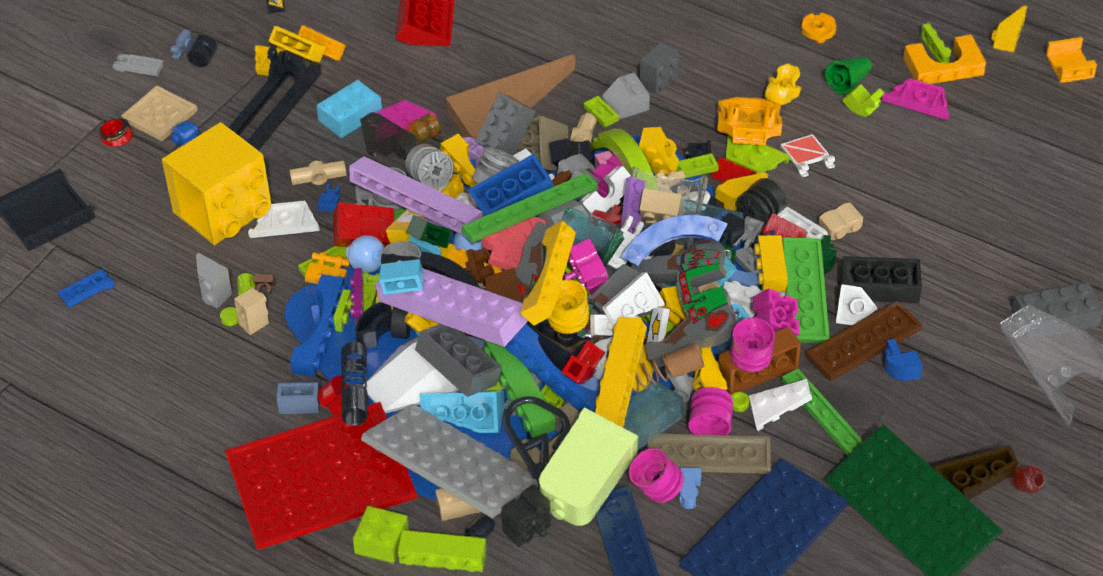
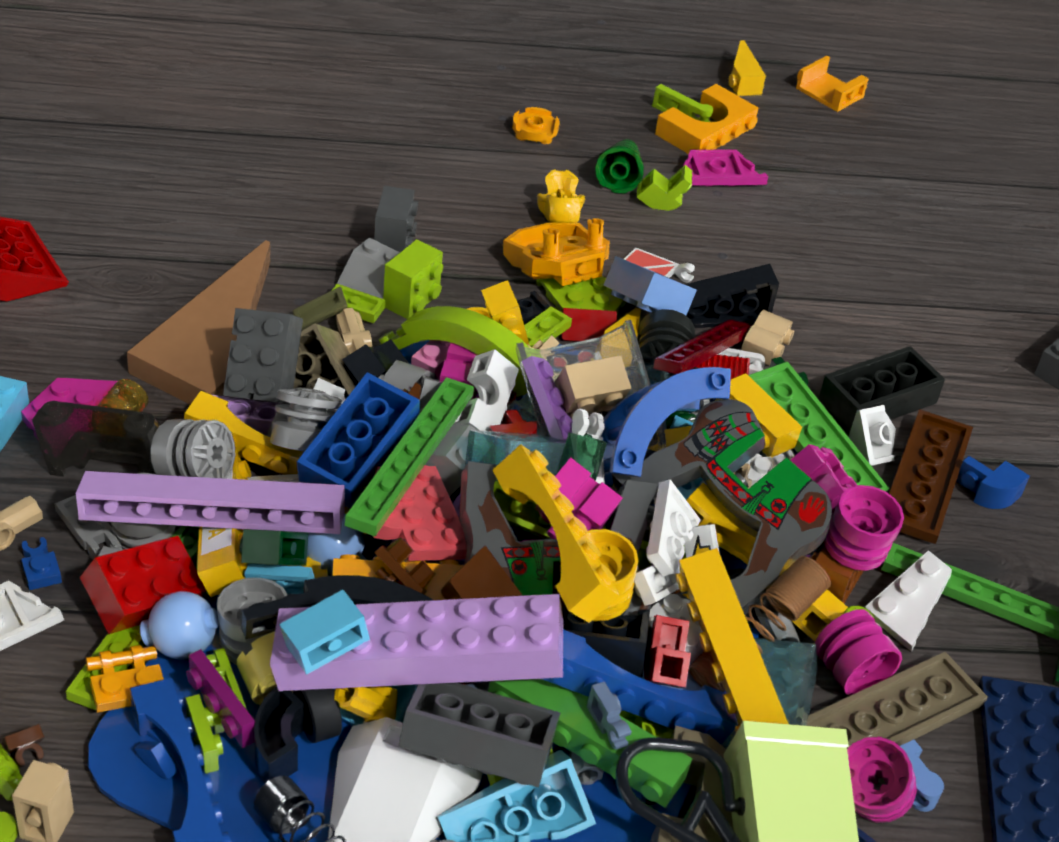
camera: 40 degrees left, 5 degrees down
(525, 374) = (605, 711): none -> sand blue plate
(575, 108) = (321, 308): none -> olive tile
(641, 107) = (412, 279): none -> lime brick
(771, 210) = (702, 347): none -> dark red tile
(781, 169) = (647, 288): none -> medium blue piece
(828, 186) = (733, 297): none -> black wedge

